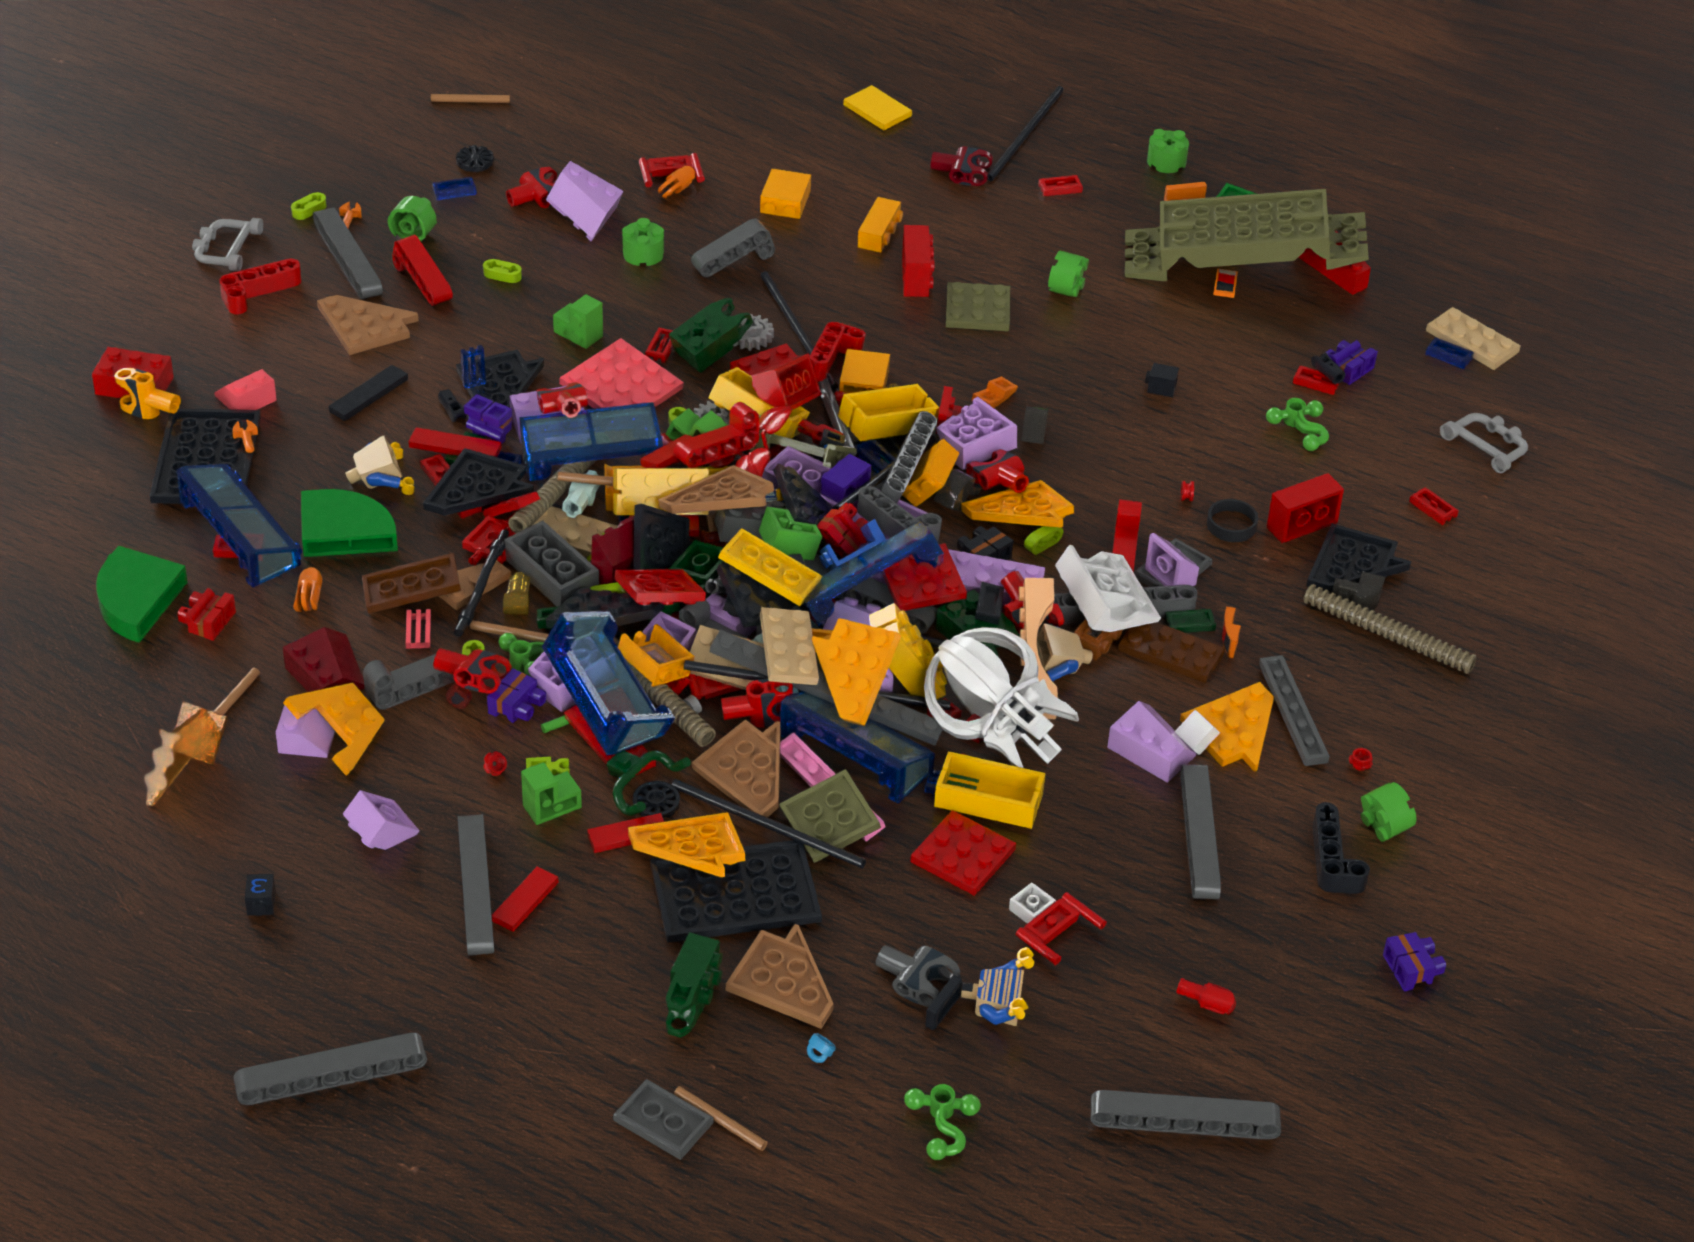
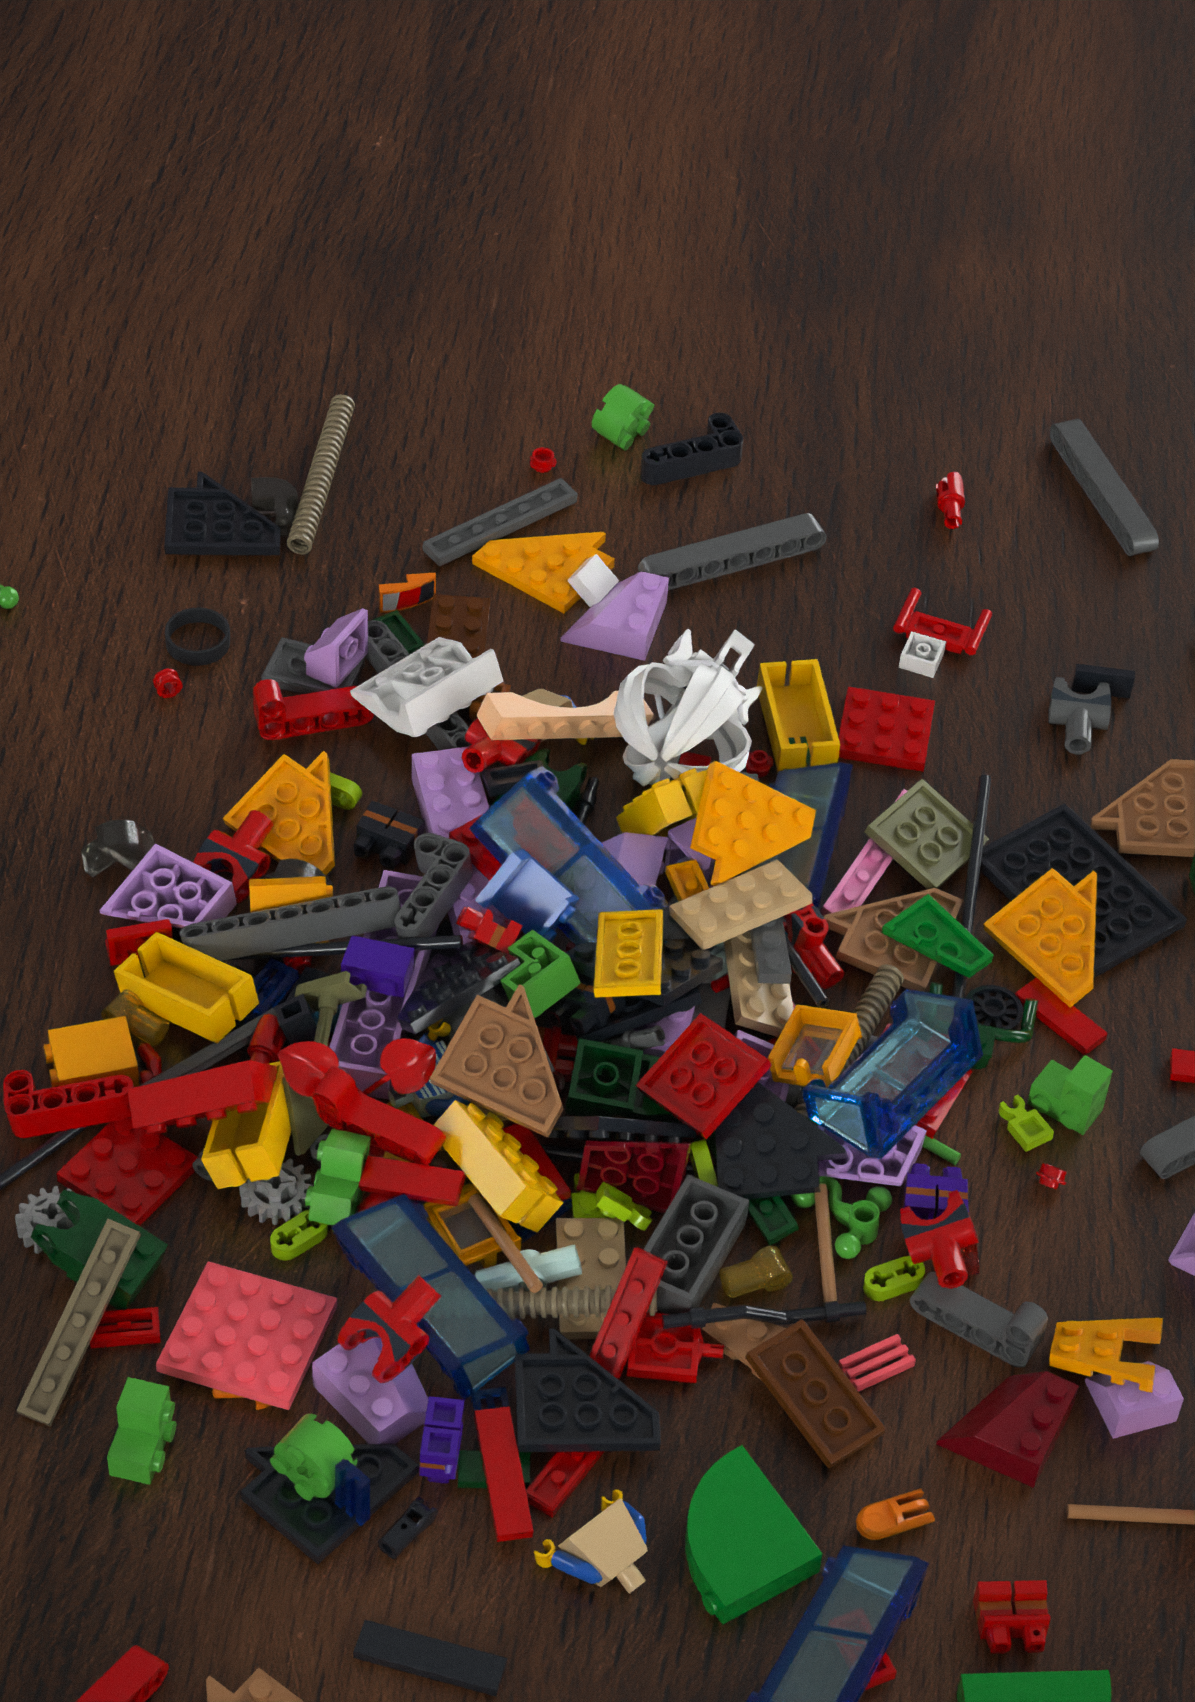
camera: 115 degrees left, 5 degrees up
(502, 271) = (25, 1613): lime beam -> none
(506, 360) = (310, 1456): none -> bright green brick
(662, 308) = (78, 1322): none -> dark tan plate
(729, 776) = (939, 936): none -> green wing
(997, 392) = (49, 917): orange slope -> none
(1000, 990) = (1061, 640): torso -> none
(1305, 508) = (162, 563): red brick -> none
(1411, 959) = (804, 375): dark purple hips -> none
(1433, 506) = (76, 480): red tile -> none

